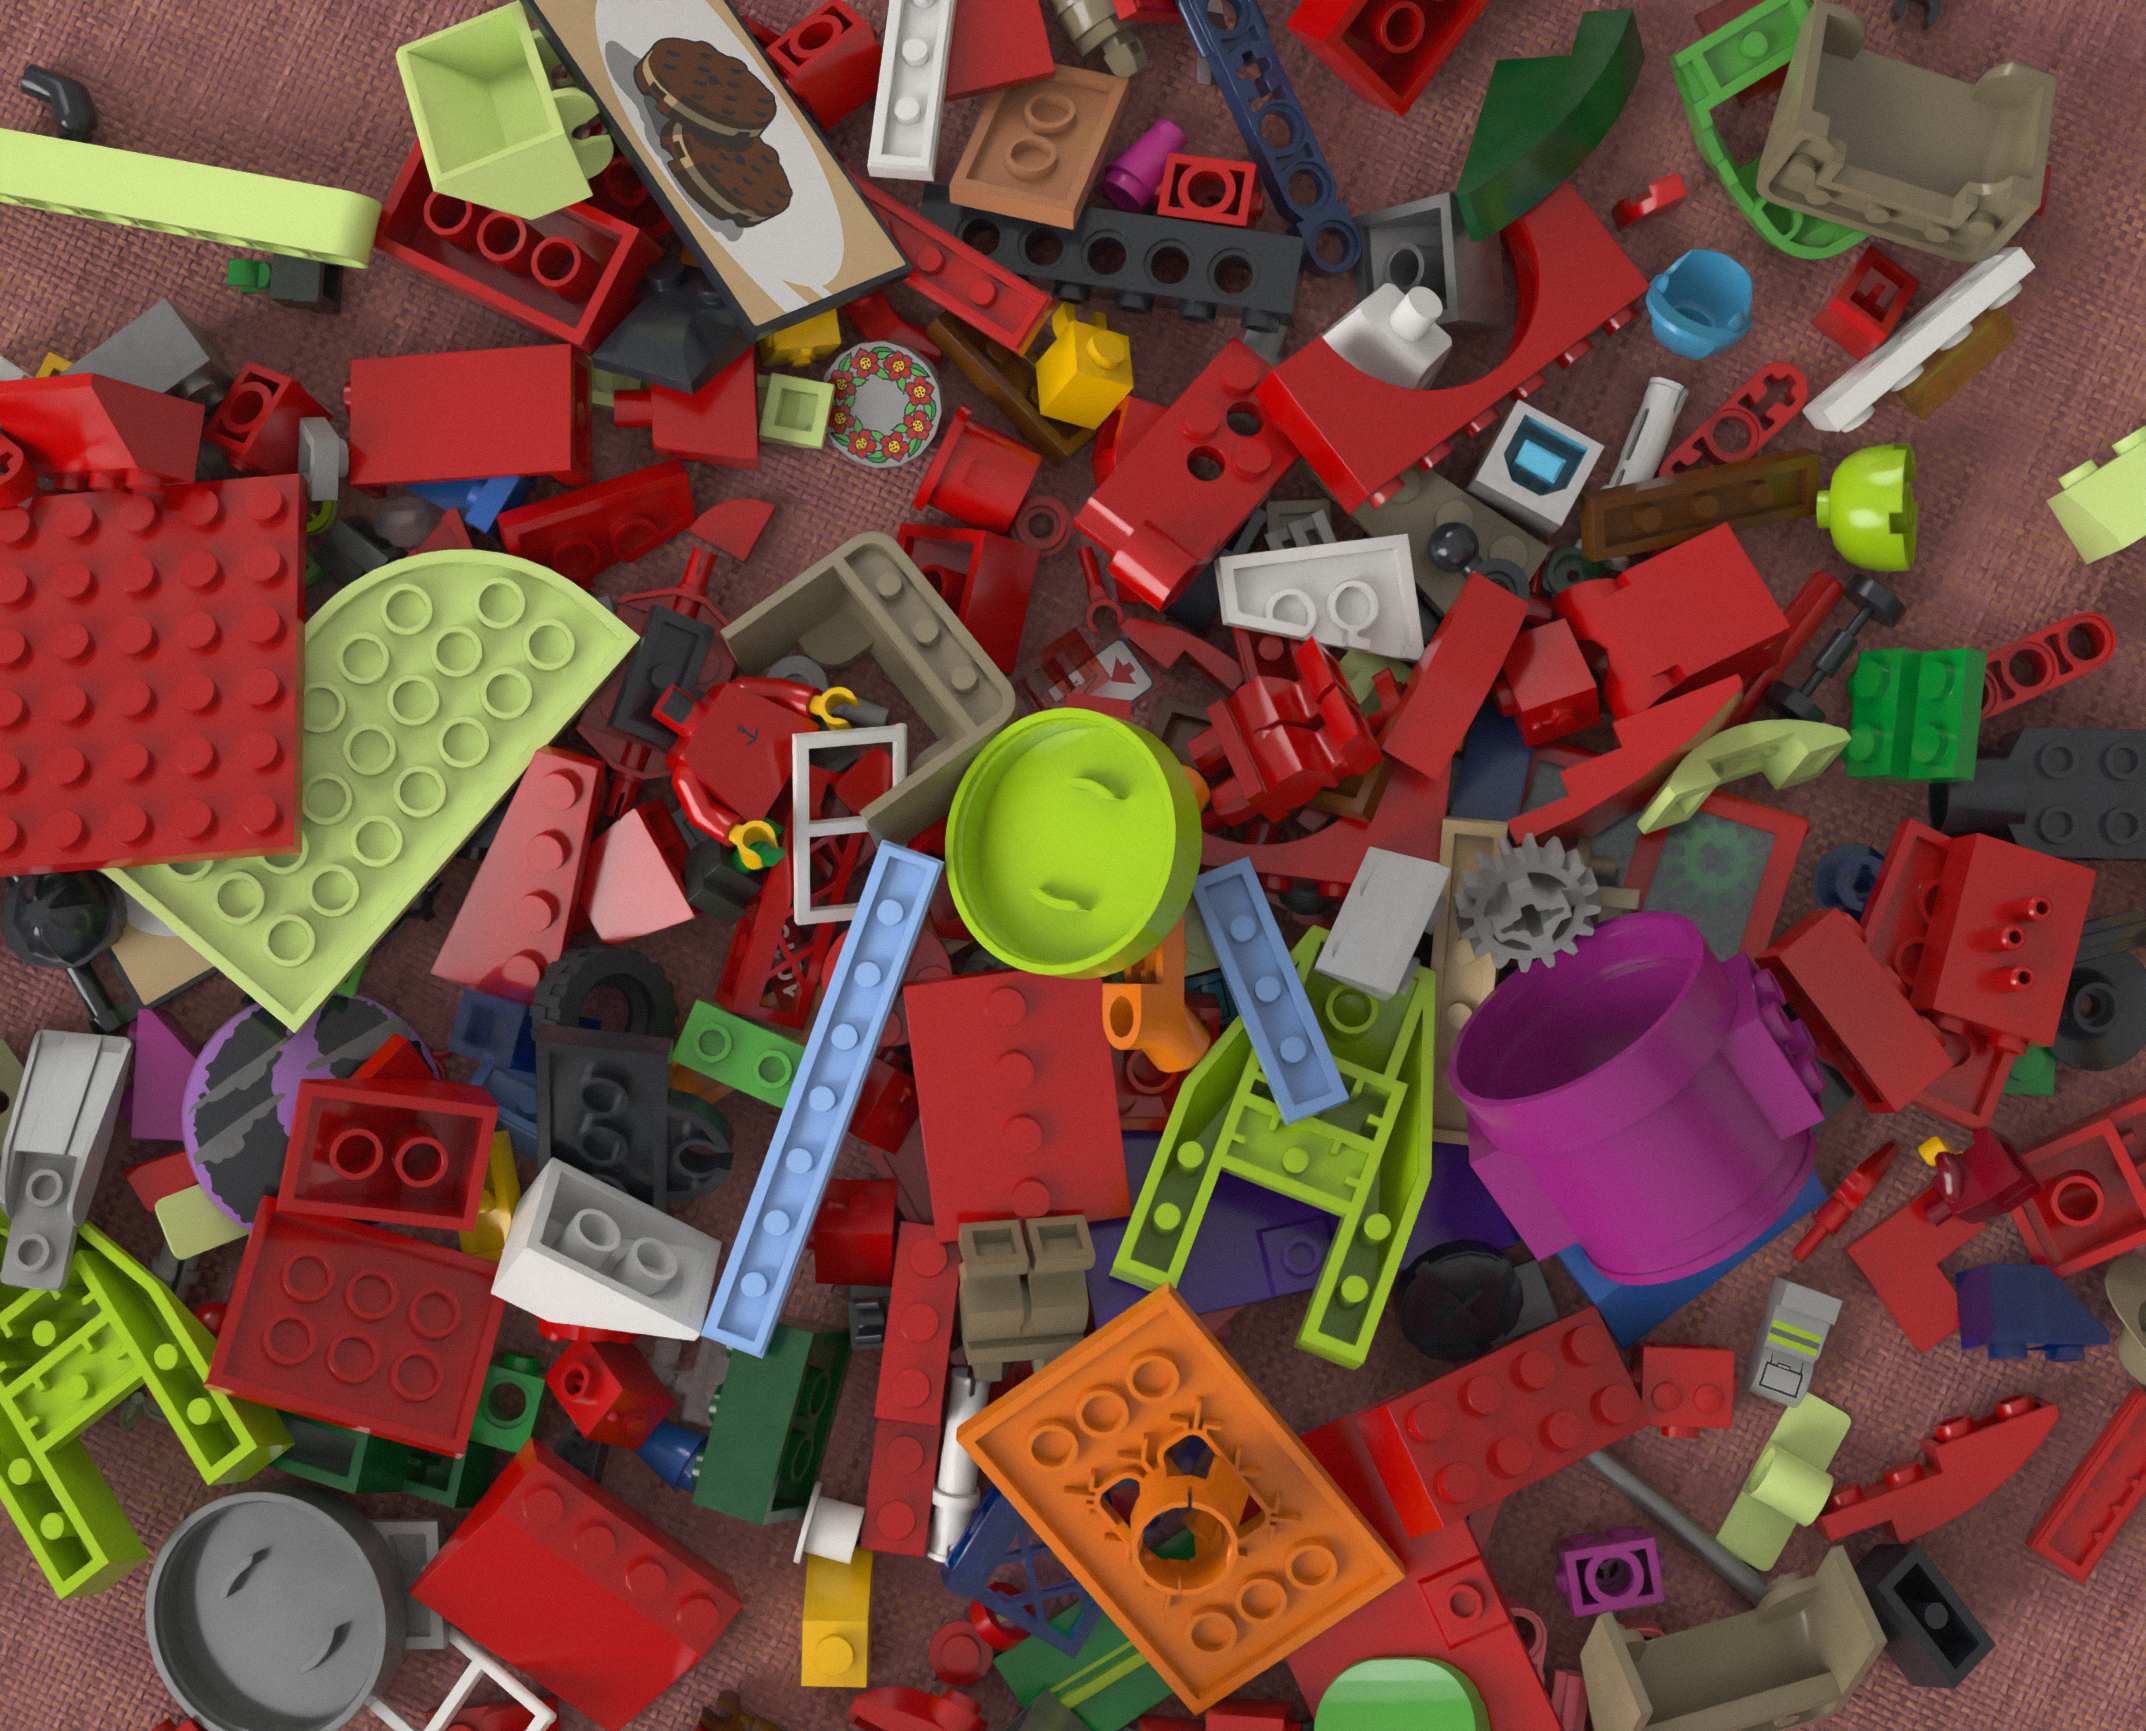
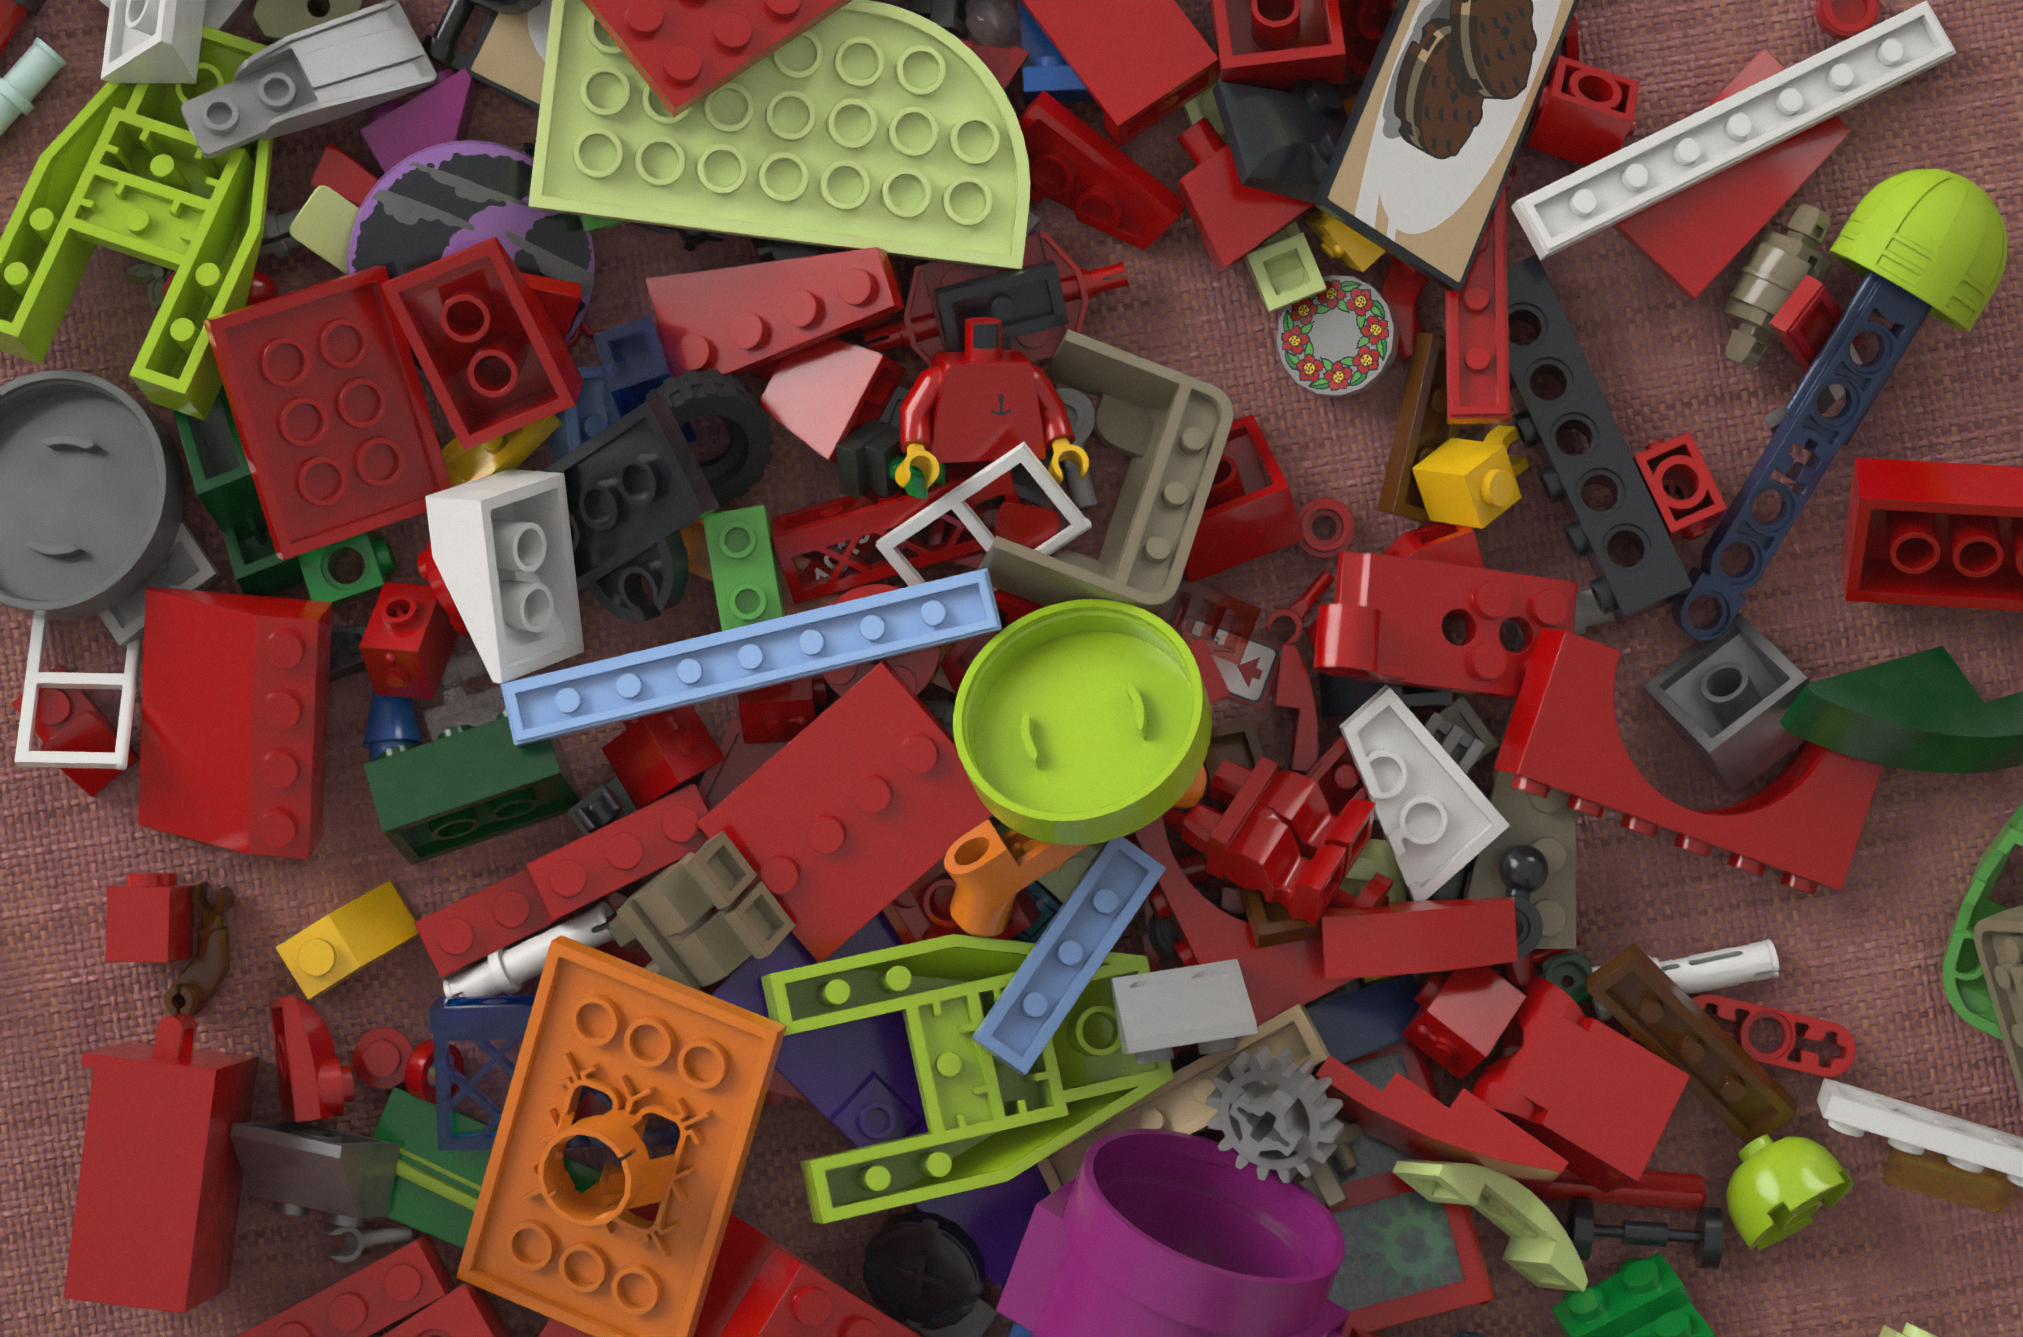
camera: 60 degrees right, 0 degrees up
(734, 526) = (1161, 283): red tile -> none
(829, 1528) = (413, 887): white piece -> none
(977, 475) = (1329, 450): red piece -> none
(1041, 146) = (1627, 327): nougat plate -> none
(1137, 170) = (1665, 417): dark pink cone -> none
(1394, 337) = (1659, 710): white torso -> none
(1533, 470) = (1628, 893): flat silver piece -> none
(1662, 198) = (1918, 850): red tile -> none
(1701, 304) = (1854, 940): dark azure piece -> none
(1866, 303) = (1947, 1074): red slope -> none

